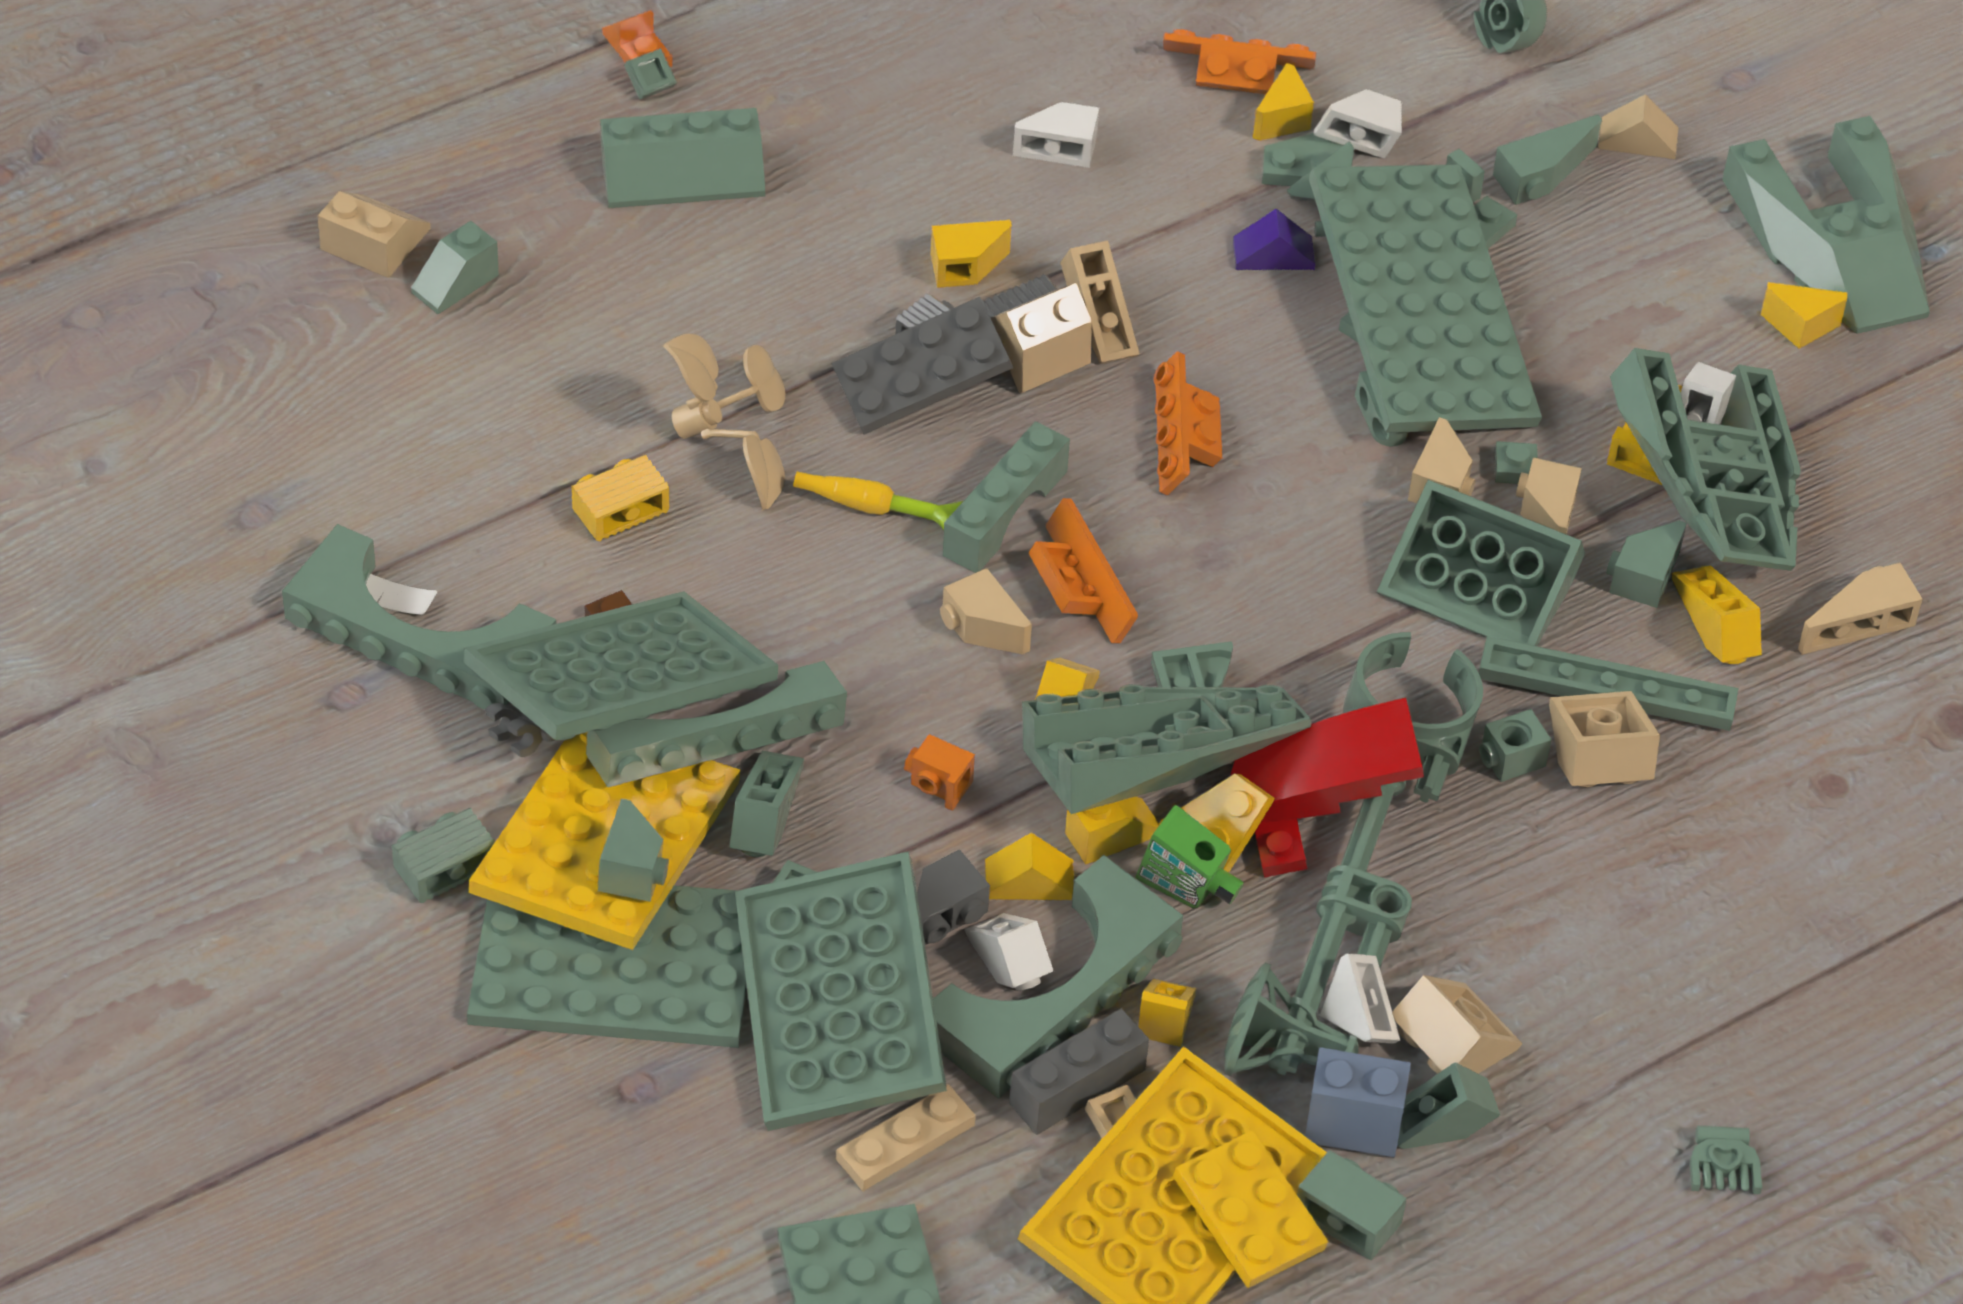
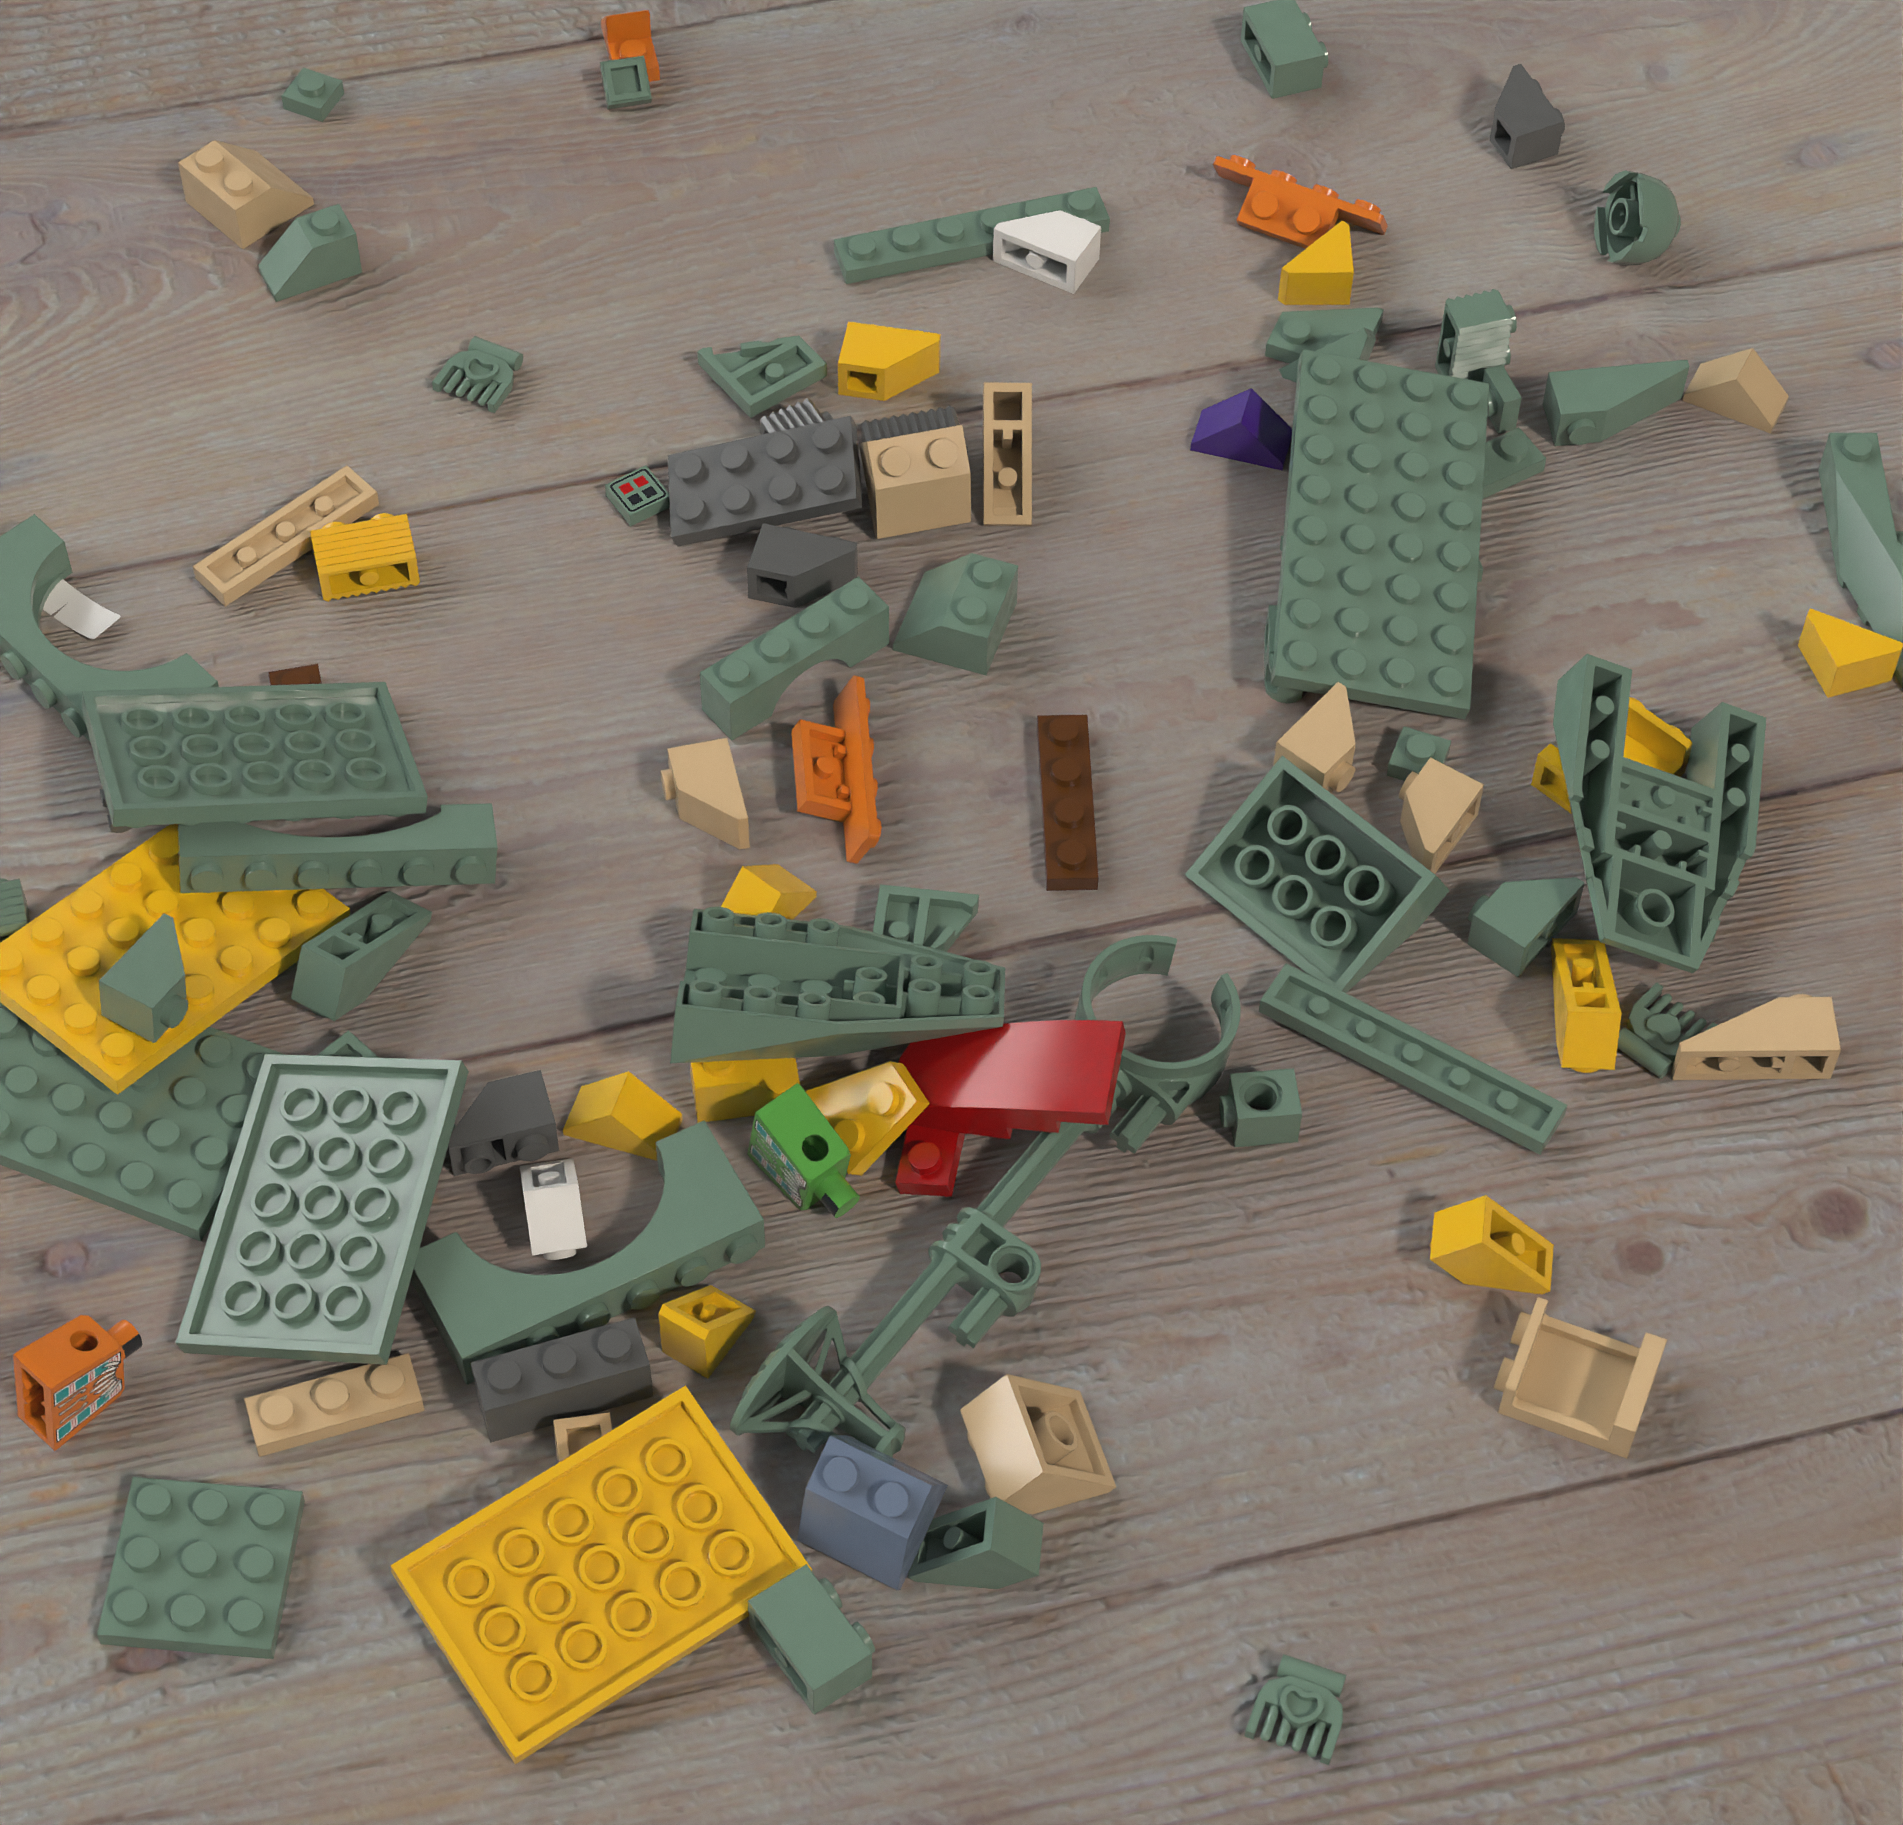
camera: 20 degrees right, 5 degrees up
(388, 138) = (312, 94): none -> sand green plate
(544, 496) = (283, 535): none -> tan plate
(642, 328) = (485, 368): none -> sand green piece
(682, 157) = (614, 183): sand green slope -> none
(703, 412) = (483, 428): tan plant -> none
(705, 1147) = (71, 1376): none -> orange torso
(816, 401) = (638, 495): none -> sand green tile
(871, 497) = (642, 619): yellow piece -> none
(873, 282) = (764, 371): none -> sand green wing
(941, 769) = (574, 967): orange brick -> none
(973, 143) = (951, 237): none -> sand green plate
(974, 426) = (798, 566): none -> dark grey slope
(1116, 433) = (960, 613): none -> sand green slope
(1185, 424) = (1047, 621): orange bracket -> none
(1250, 1208) = (680, 1613): yellow plate -> none
(1263, 558) = (1067, 803): none -> reddish brown plate
(1360, 1001) = (928, 1384): white slope -> none
(1365, 120) = (1402, 308): white slope -> none
(1430, 130) = (1475, 335): none -> sand green brick
(1604, 738) = (1371, 1126): tan slope -> none
(1706, 393) = (1664, 731): white slope -> none
(1724, 803) = (1491, 1248): none -> yellow slope
(1780, 625) = (1656, 1036): none -> sand green piece
(1828, 882) = (1577, 1381): none -> tan panel

